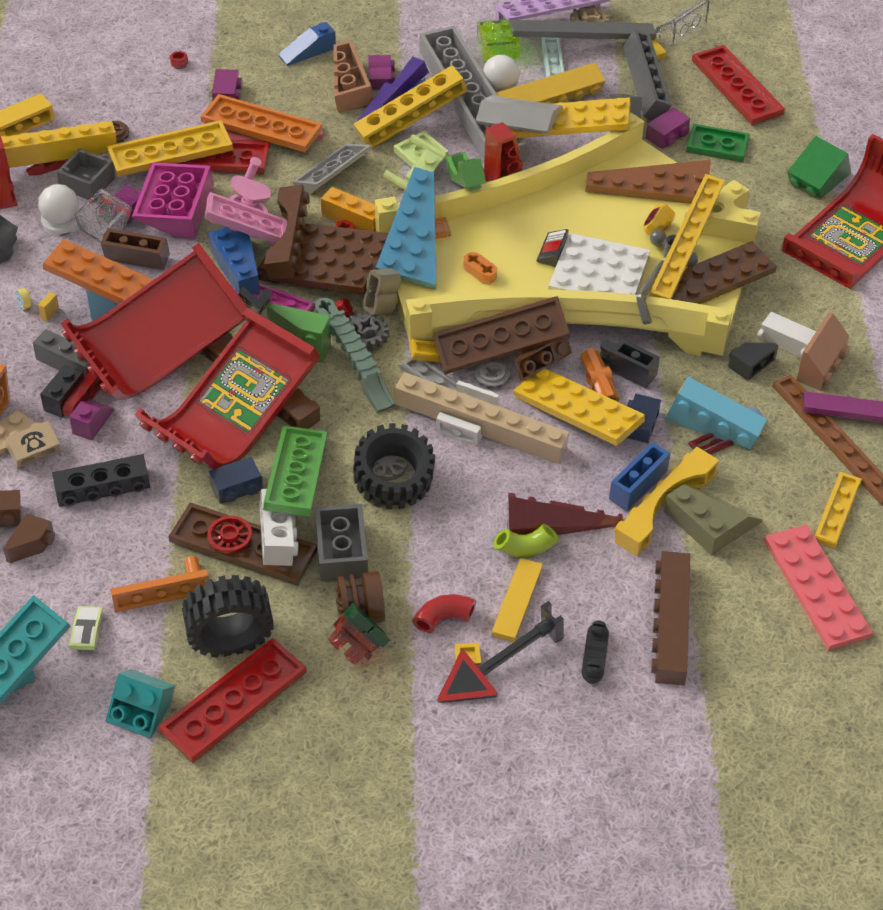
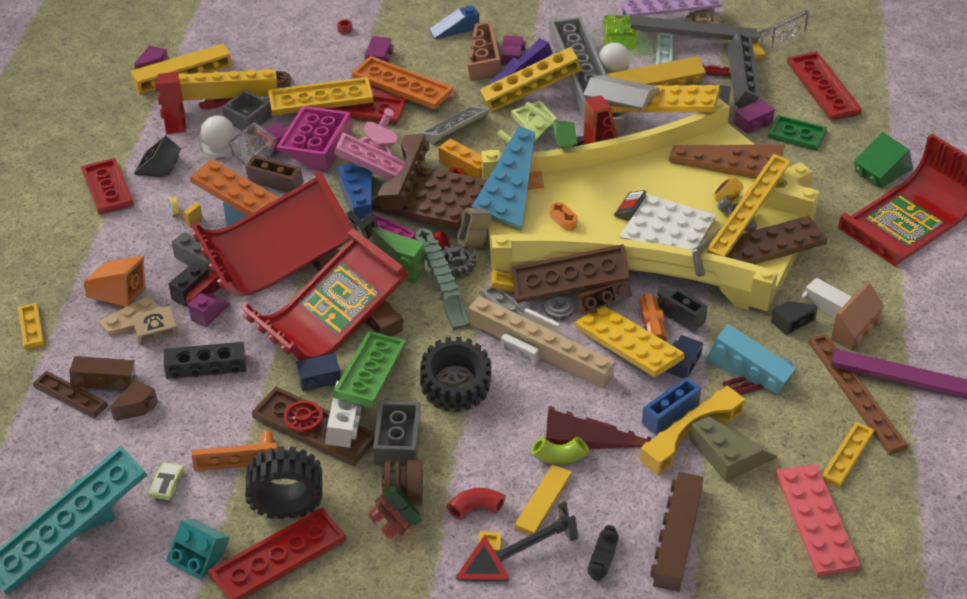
camera: 10 degrees right, 5 degrees down
(616, 76) = (716, 70): none -> red axle

